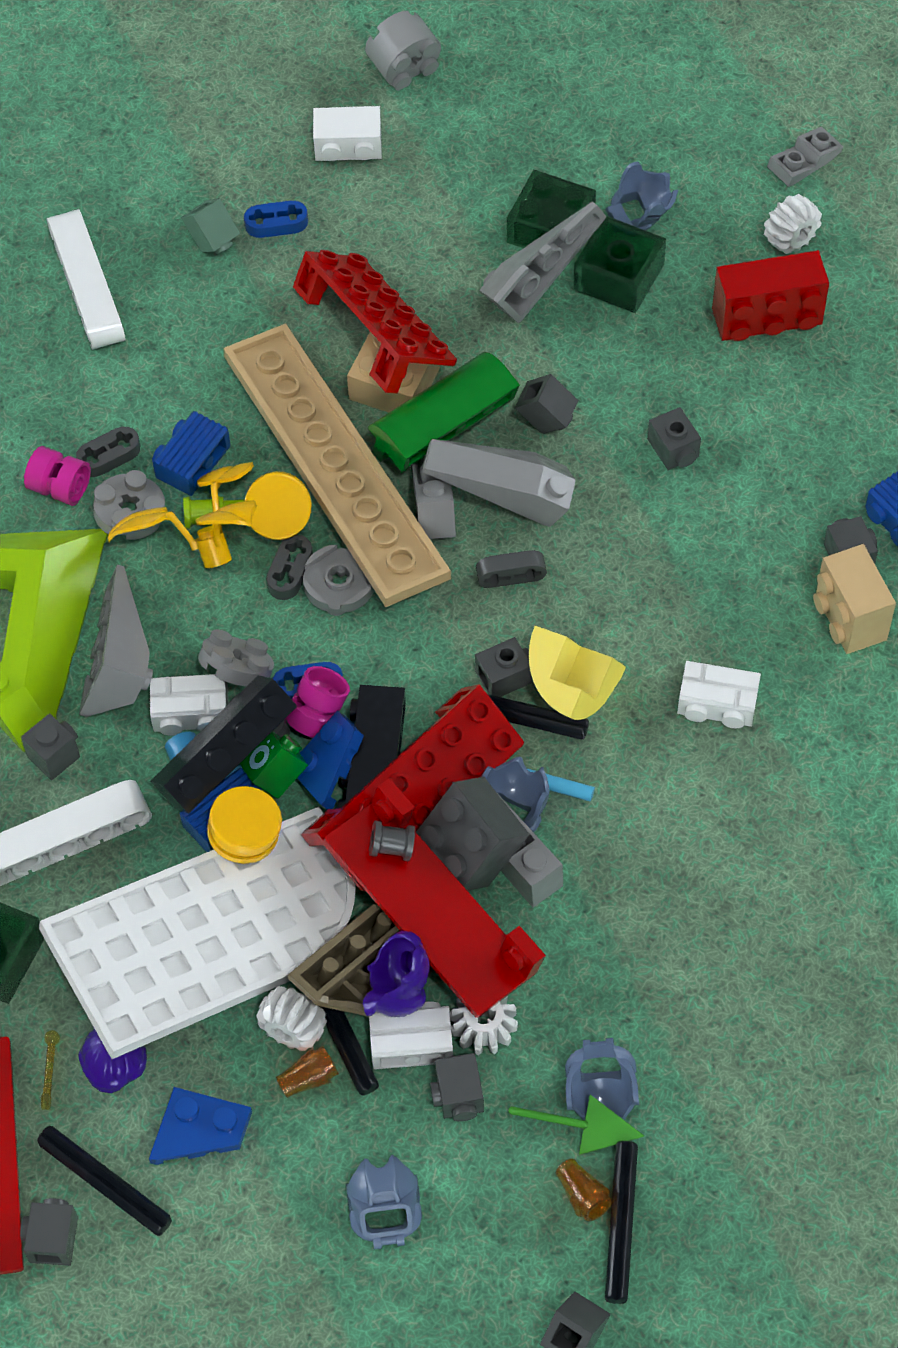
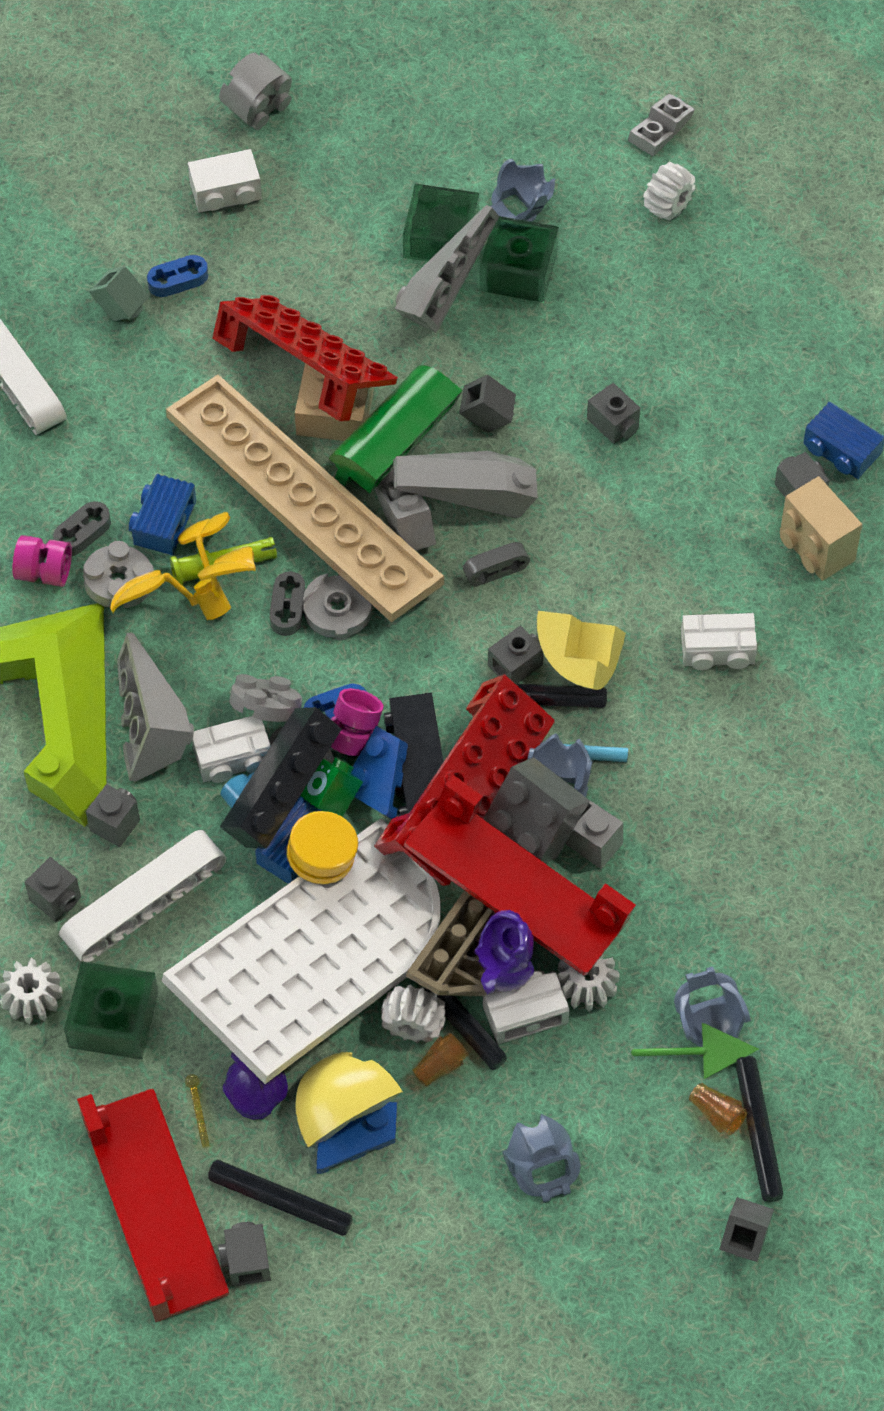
camera: 15 degrees left, 0 degrees up
(190, 1085) = (340, 1092): none -> light yellow brick
(281, 505) = (272, 544): yellow head -> none
(392, 840) = (468, 831): dark grey bush -> none
(458, 1087) = (581, 1042): dark grey brick -> none
(770, 295) = (667, 263): red brick -> none

